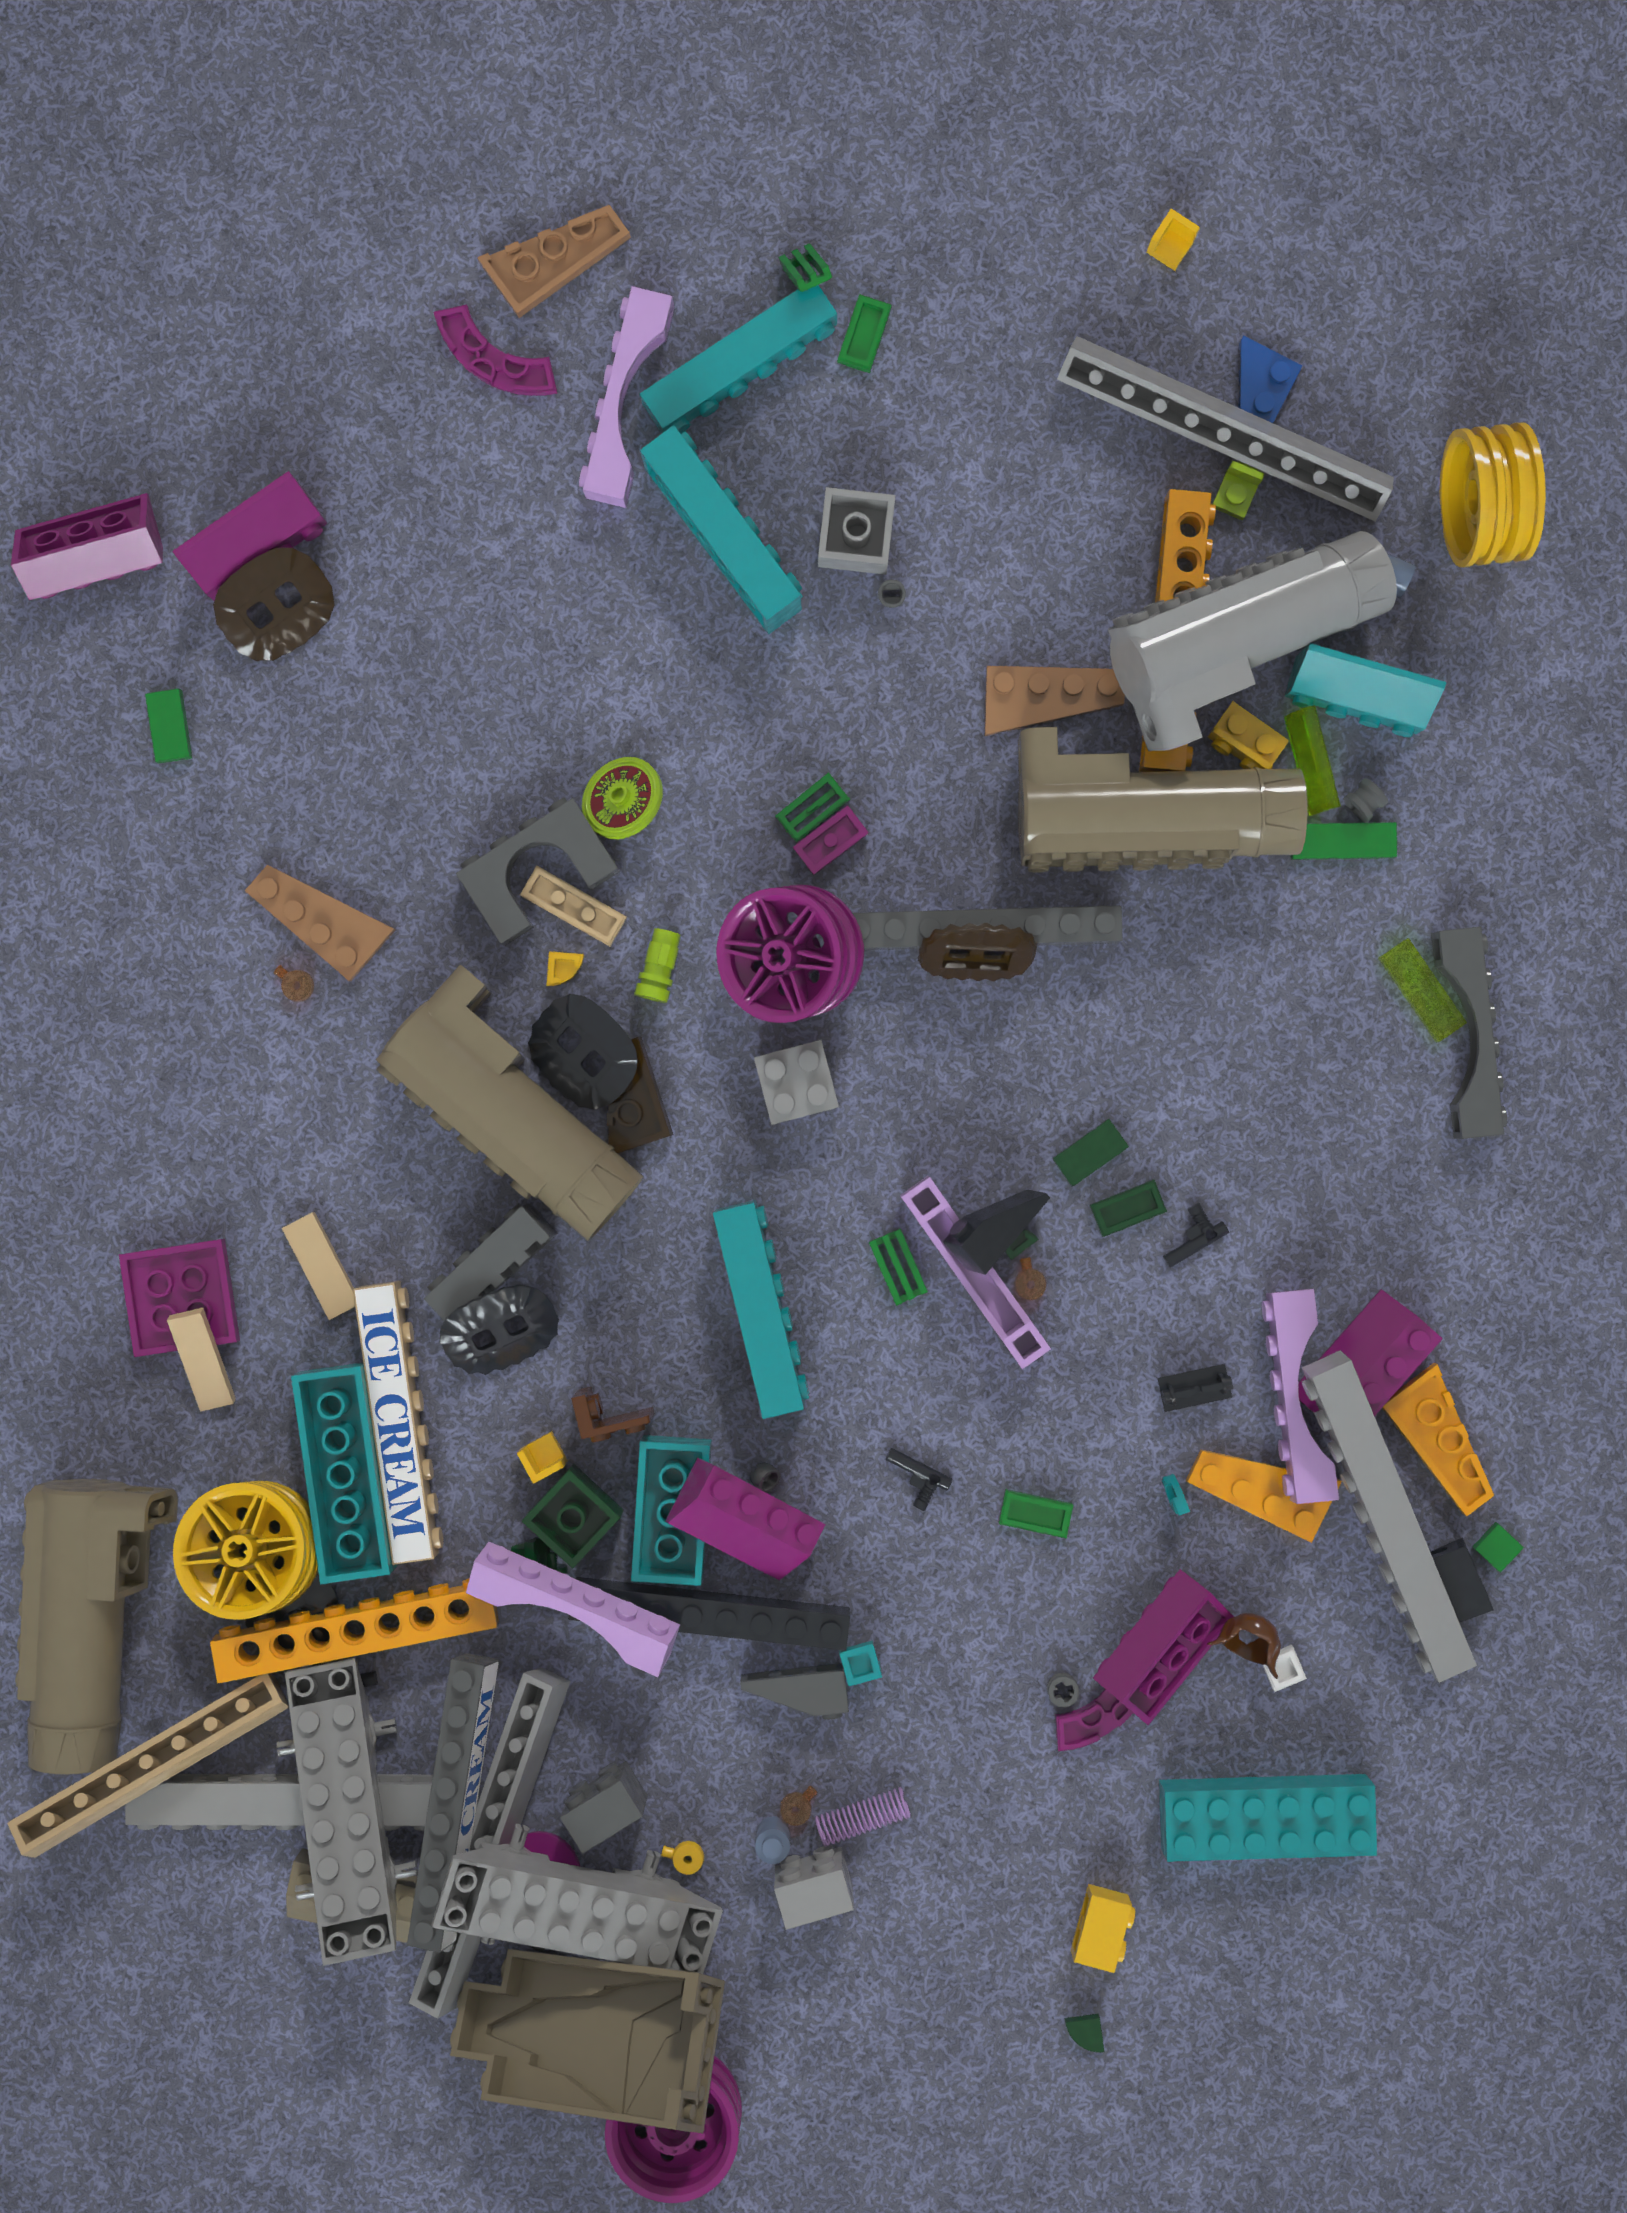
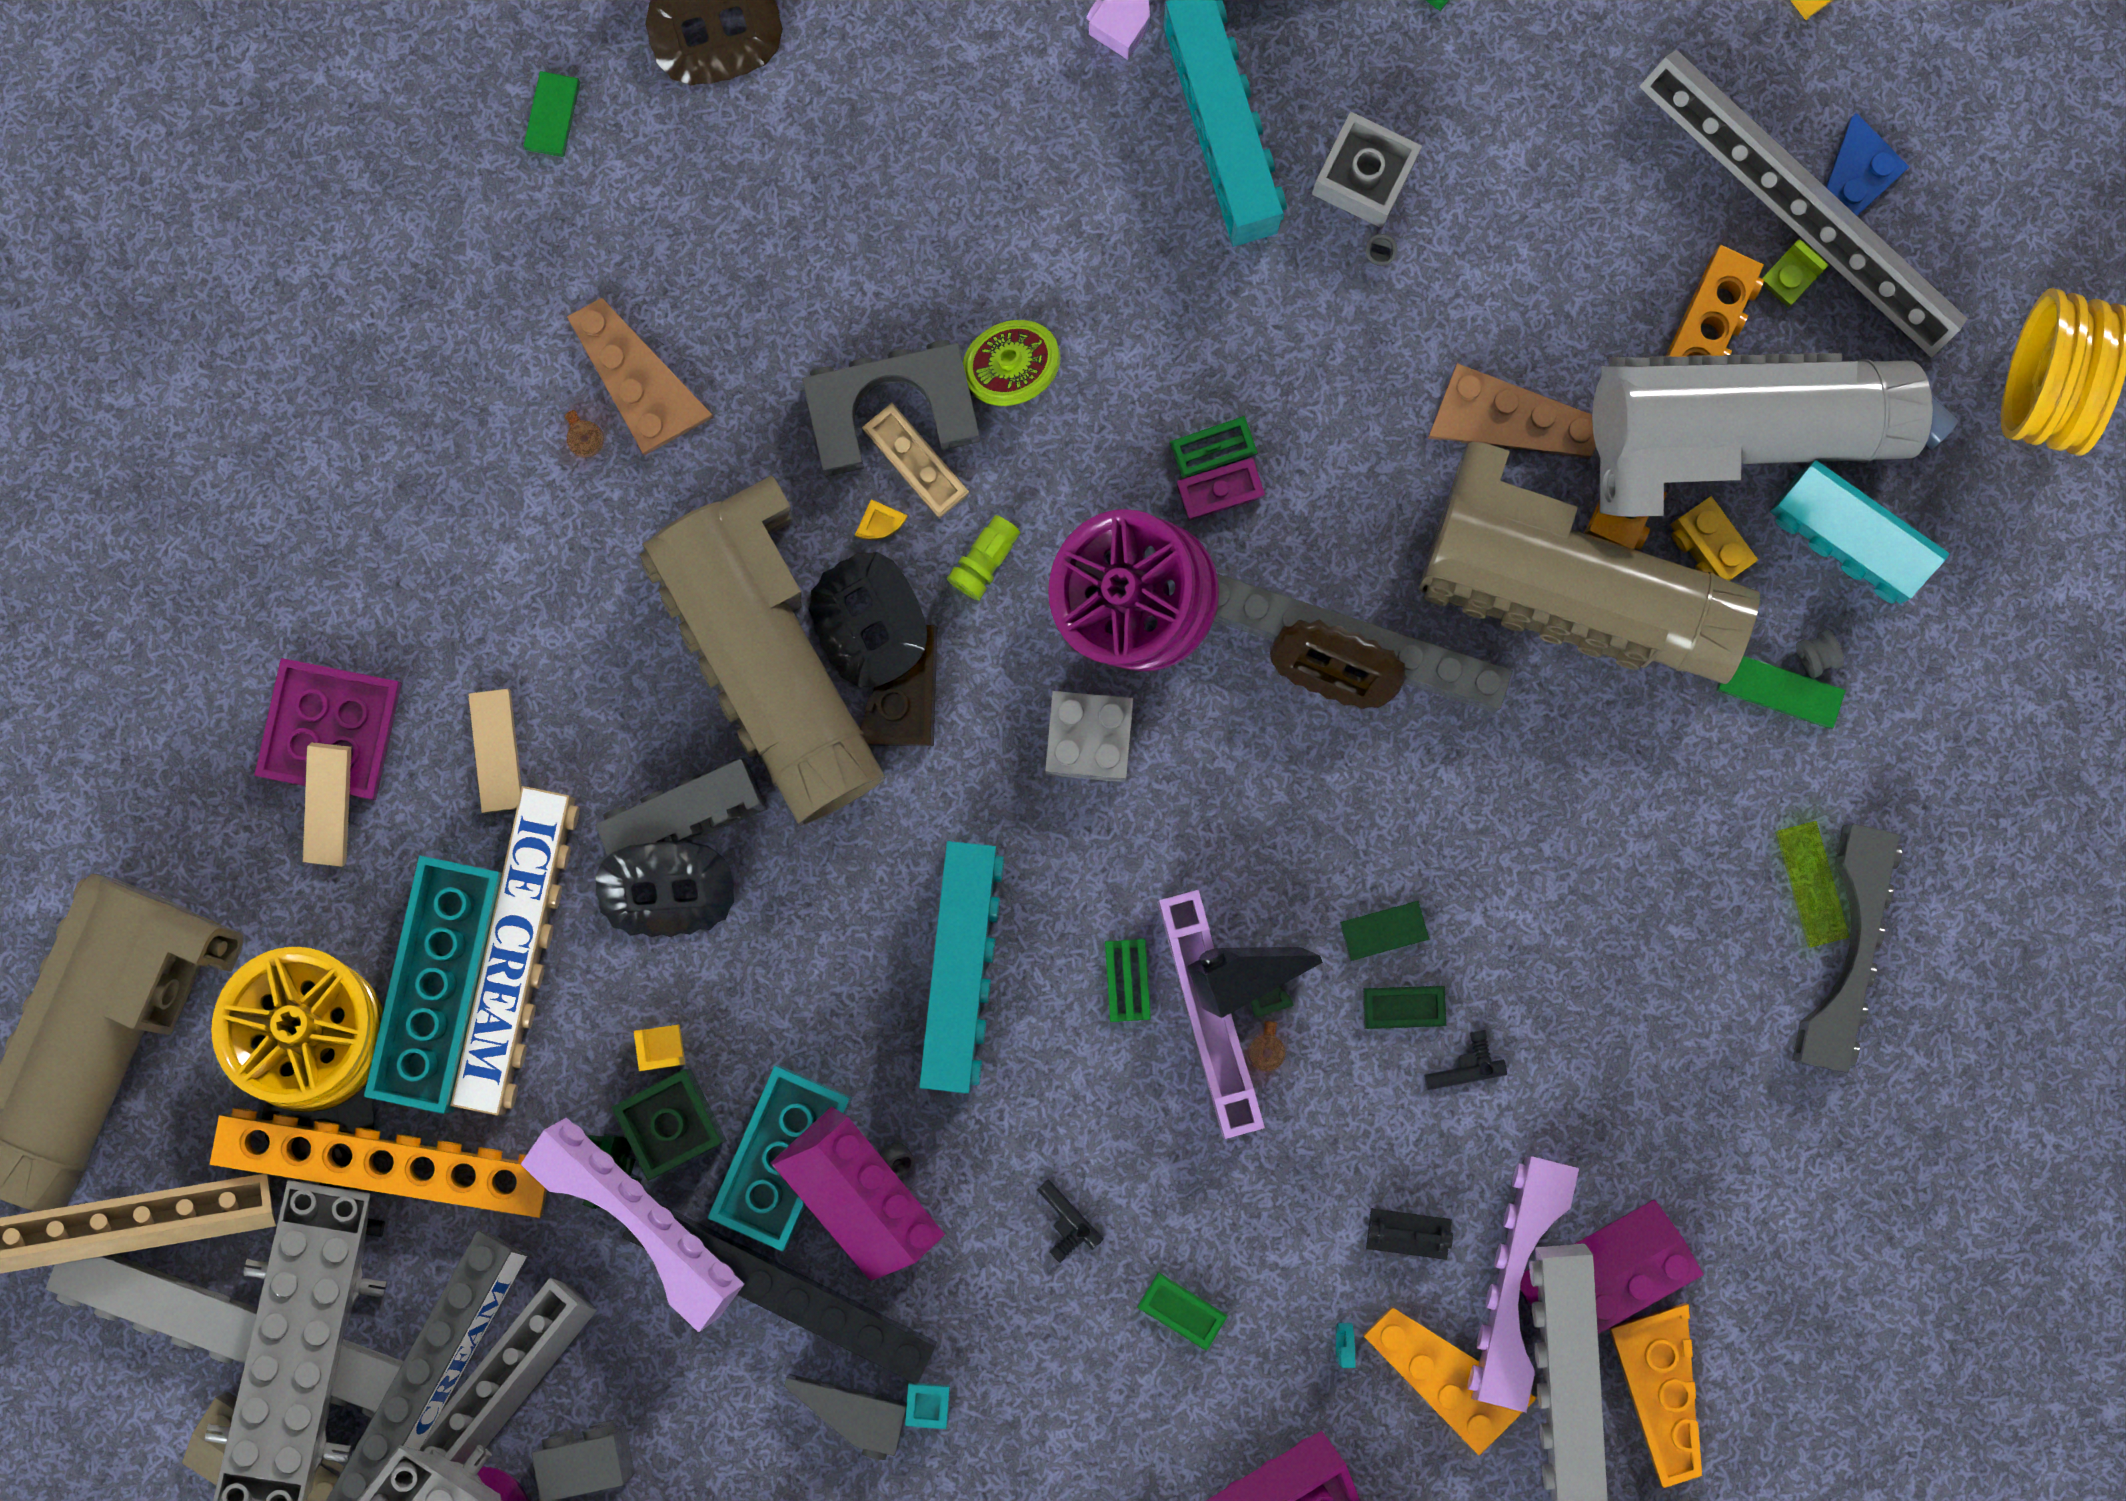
camera: 20 degrees right, 5 degrees down
(588, 1410) = (730, 1012): reddish brown bracket -> none
(1313, 760) = (1776, 589): clear neon green tile -> none

